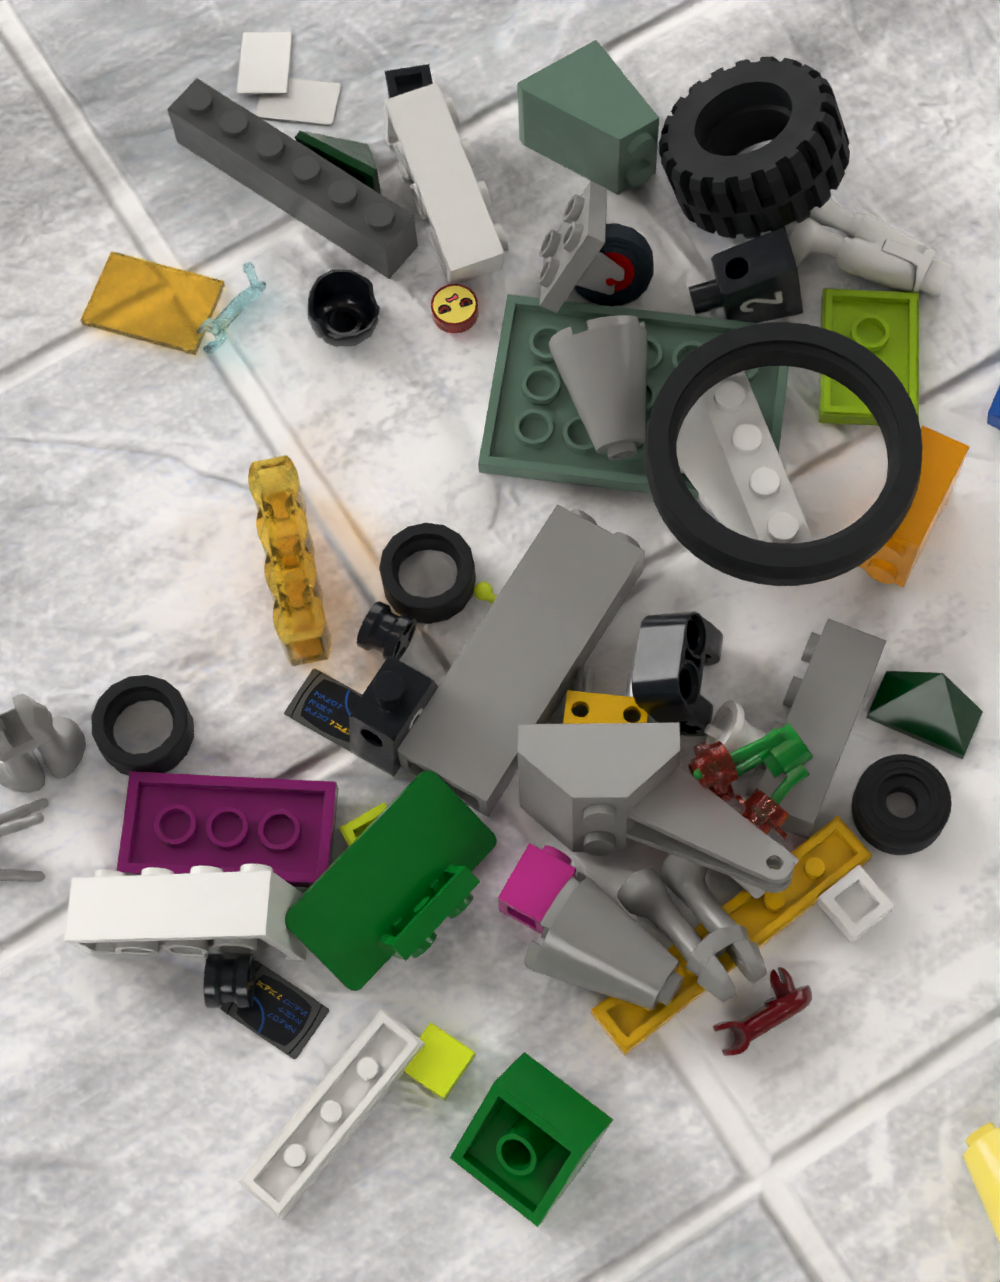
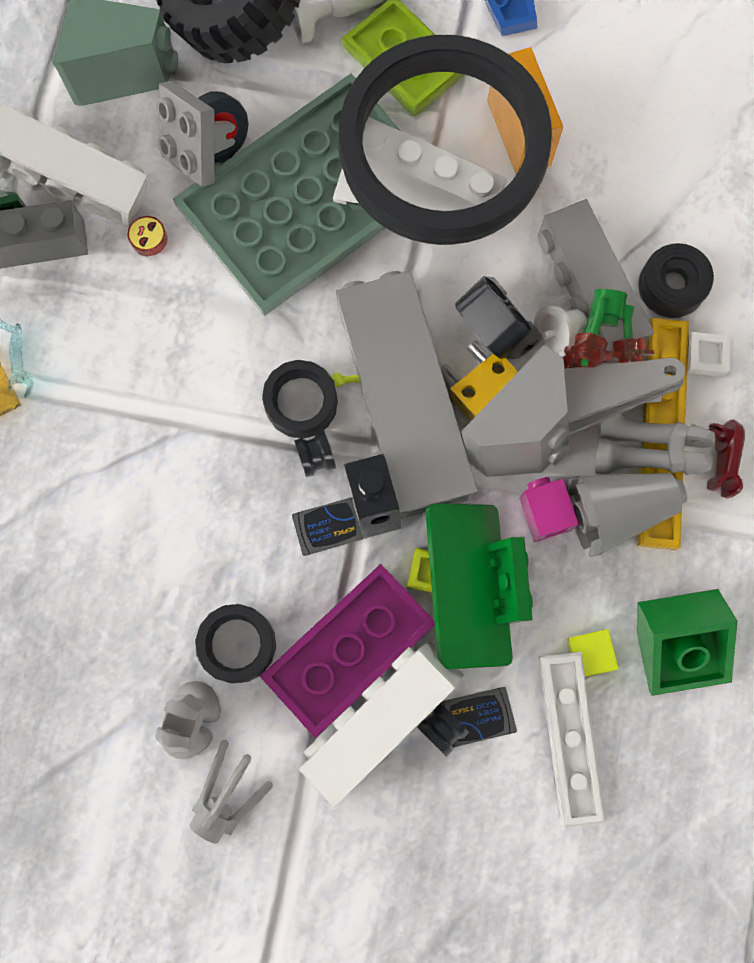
camera: 50 degrees left, 10 degrees up
(289, 561) = (210, 464): clear yellow brick -> none
(342, 308) = (85, 294): black hair -> none
(607, 380) = (292, 193): light grey cone -> none
(752, 281) = (304, 64): black torso -> none
(926, 709) = (635, 218): dark green slope -> none

